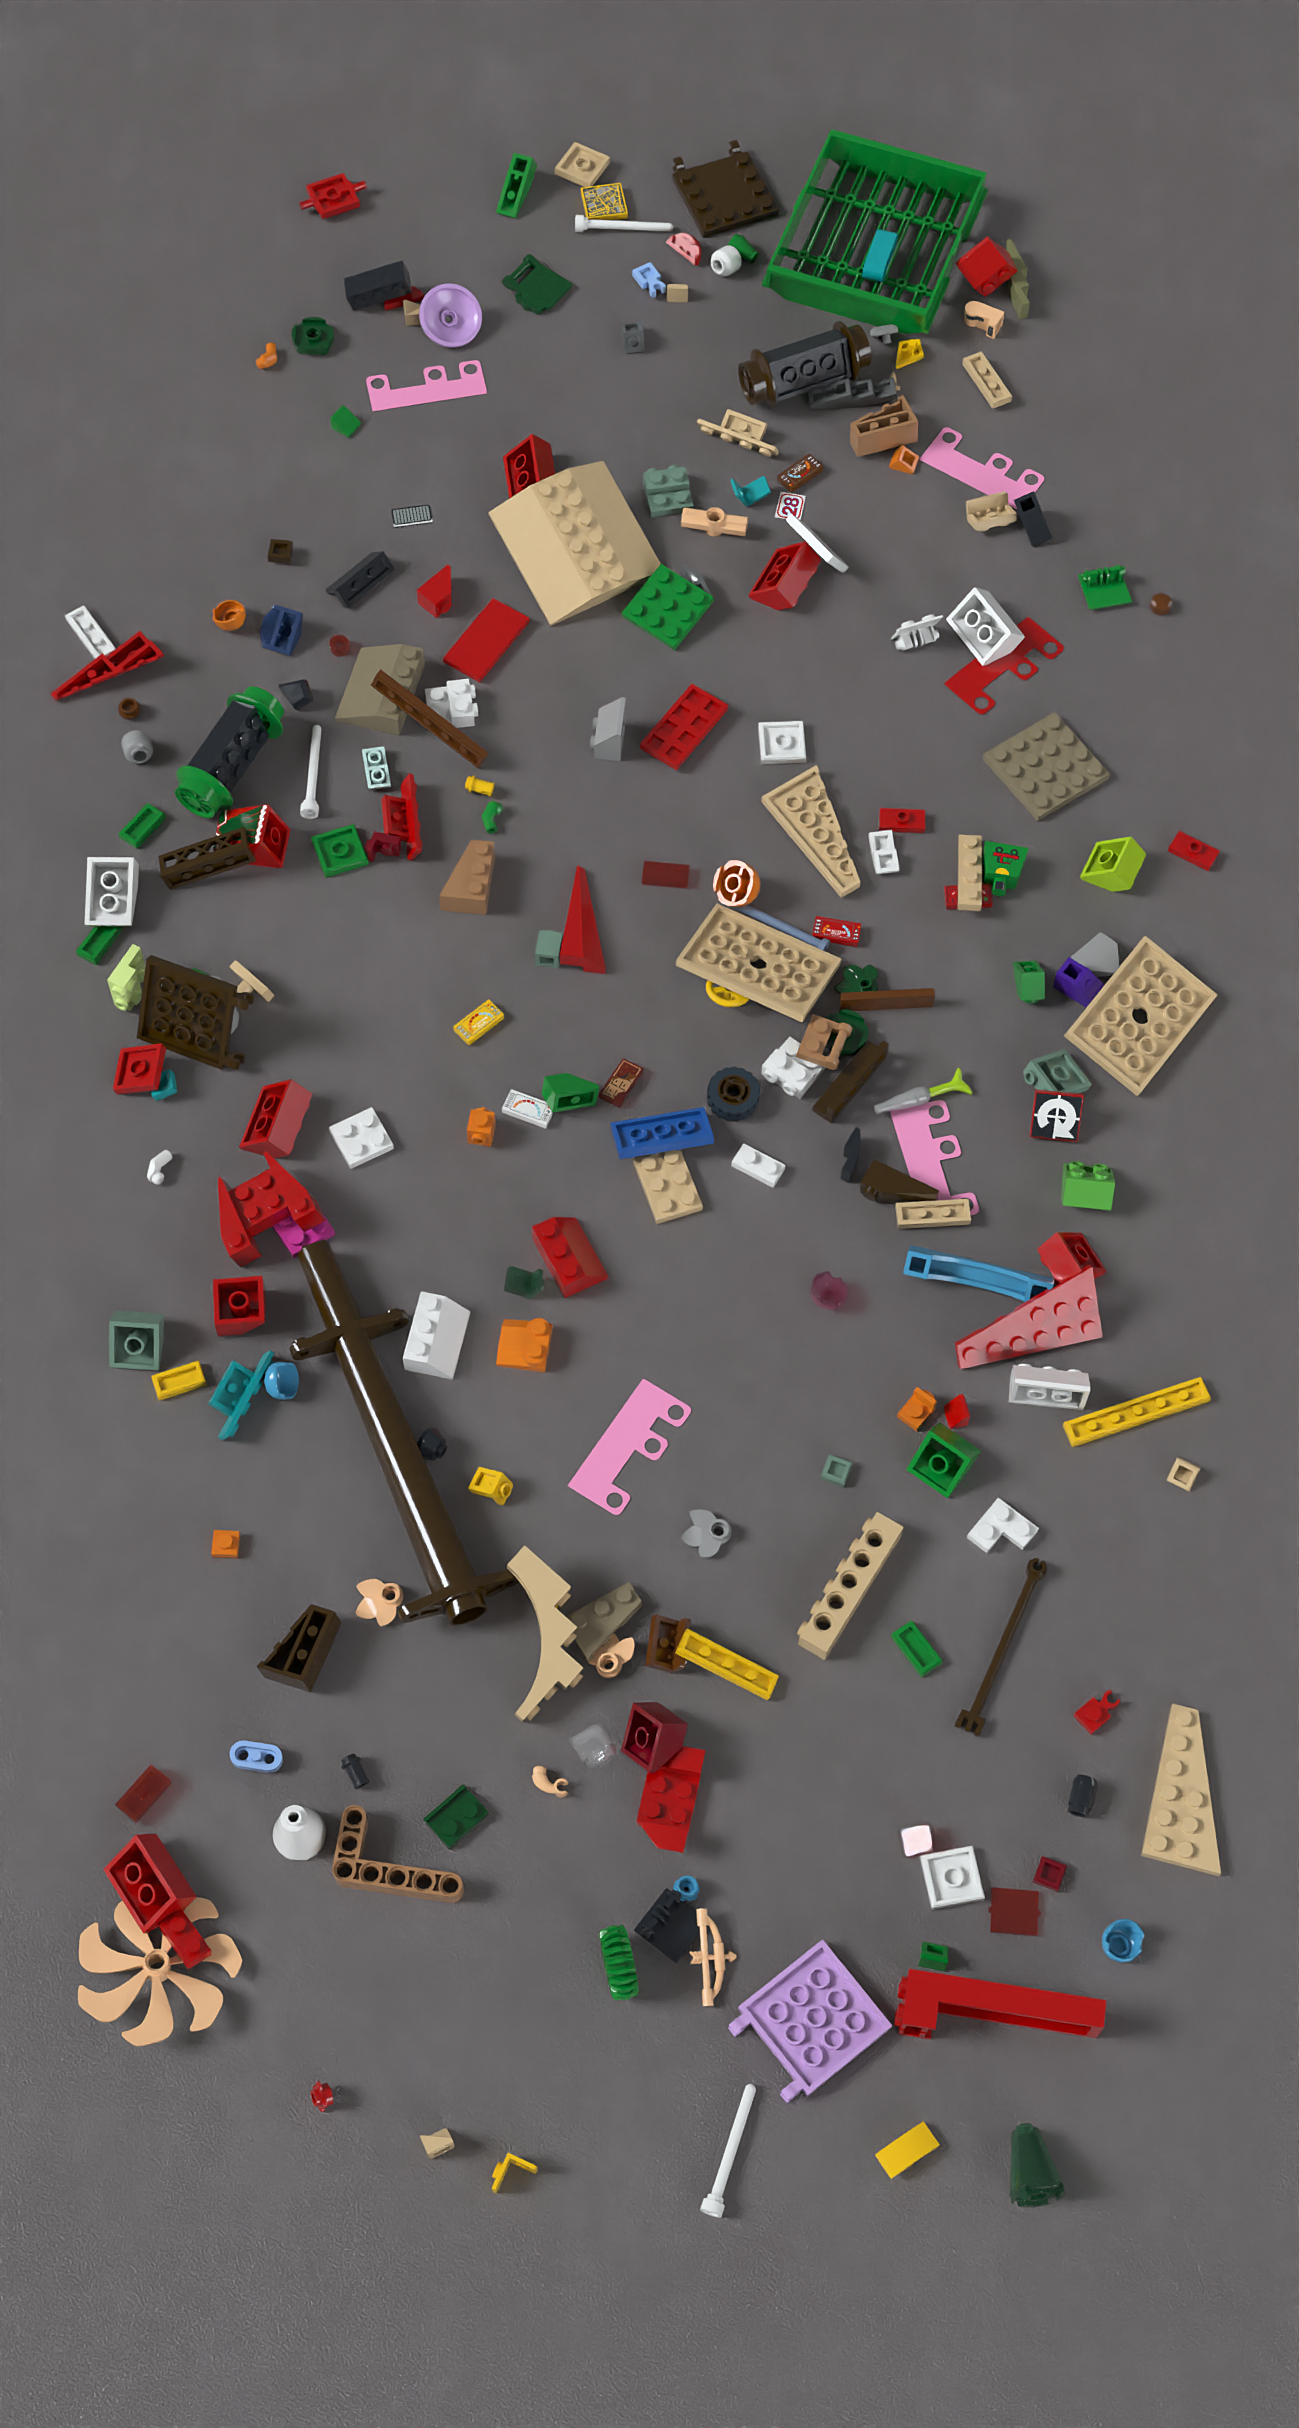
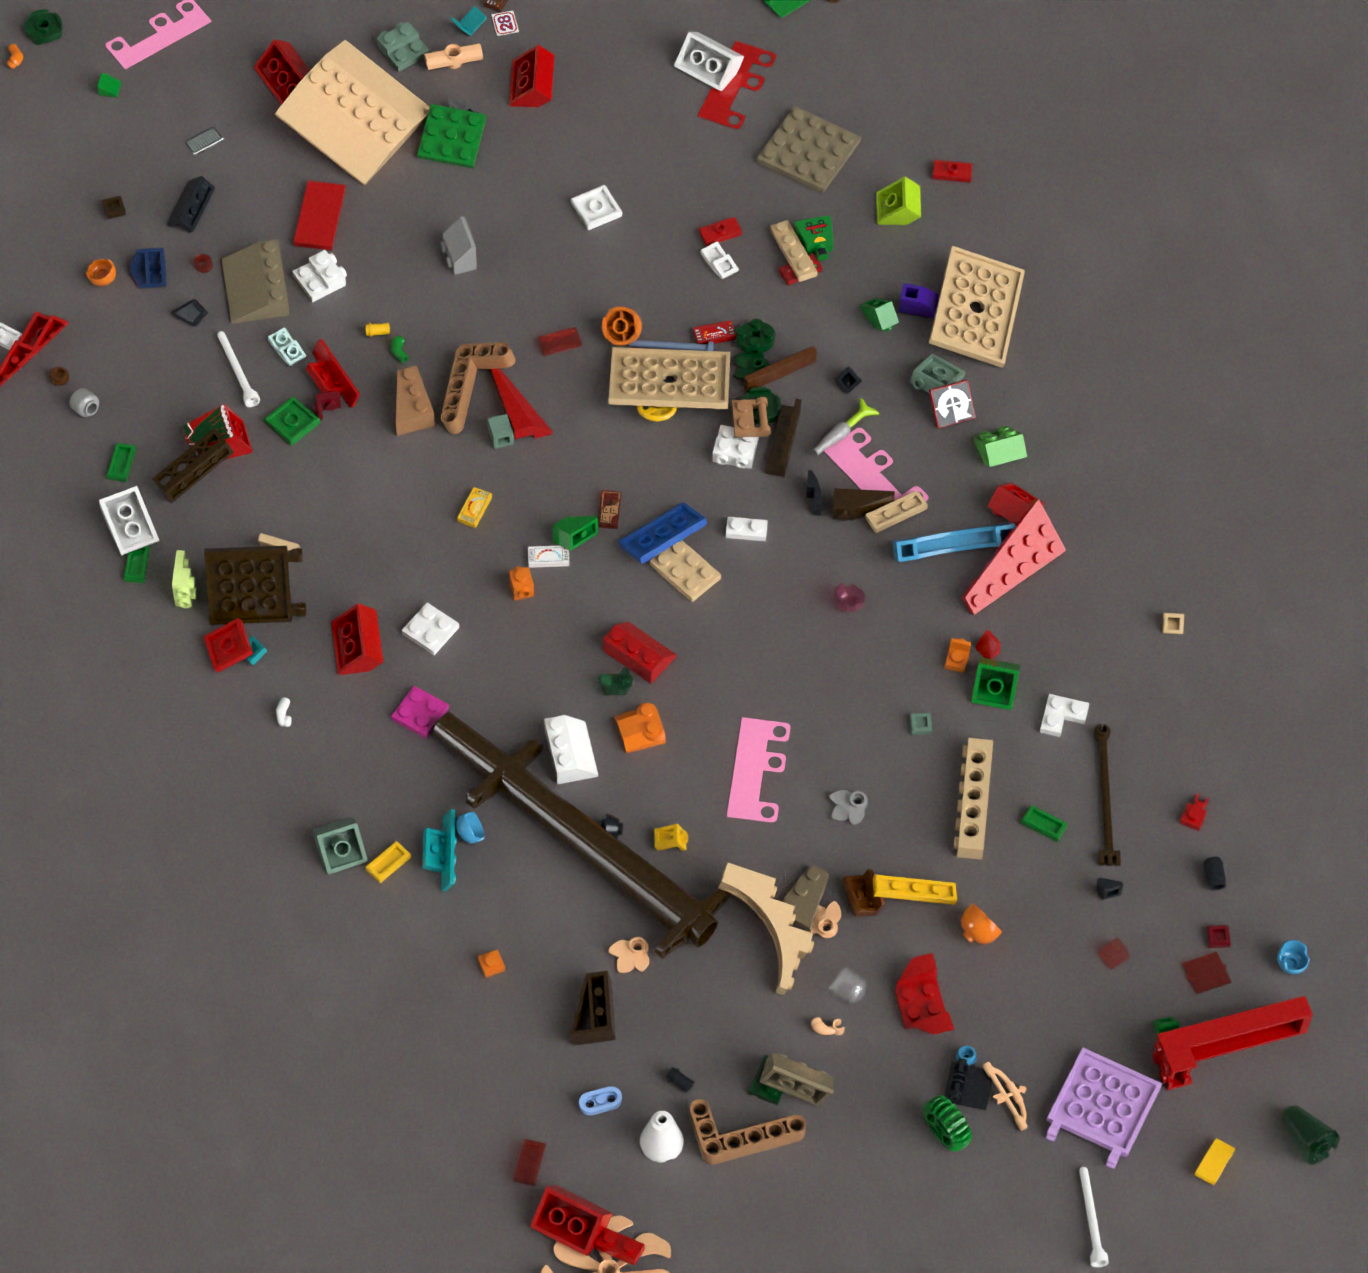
camera: 25 degrees left, 5 degrees down
(229, 751) = (169, 348): brick -> none
(238, 1304) = (407, 786): red slope -> none
(261, 1205) = (385, 704): red wedge -> none
(429, 719) = (314, 291): reddish brown tile -> none
(436, 593) = (261, 193): red slope -> none
(479, 1831) = (797, 1079): none -> dark tan slope
(538, 875) = (462, 378): none -> medium nougat beam
(652, 1735) = (888, 960): dark red slope -> none
(684, 726) = (514, 223): red plate -> none
(733, 1080) = (700, 473): black wheel -> none
(776, 1740) = (978, 926): none -> orange cylinder
(811, 822) = (654, 260): tan wing -> none
(819, 546) = (545, 43): white tile -> none
(879, 942) = (747, 341): none -> dark green plate
(924, 632) = (658, 84): white hinge -> none
(950, 1760) = (1109, 888): none -> black slope
(952, 1877) = (1151, 968): white tile -> none
(956, 1041) = (848, 379): none -> black slope
(1049, 1387) = (1046, 600): white slope -> none
(1099, 956) = (923, 273): light grey slope -> none
(1136, 1411) = (1117, 593): yellow tile -> none
(1181, 1812) = (1287, 853): tan wing -> none

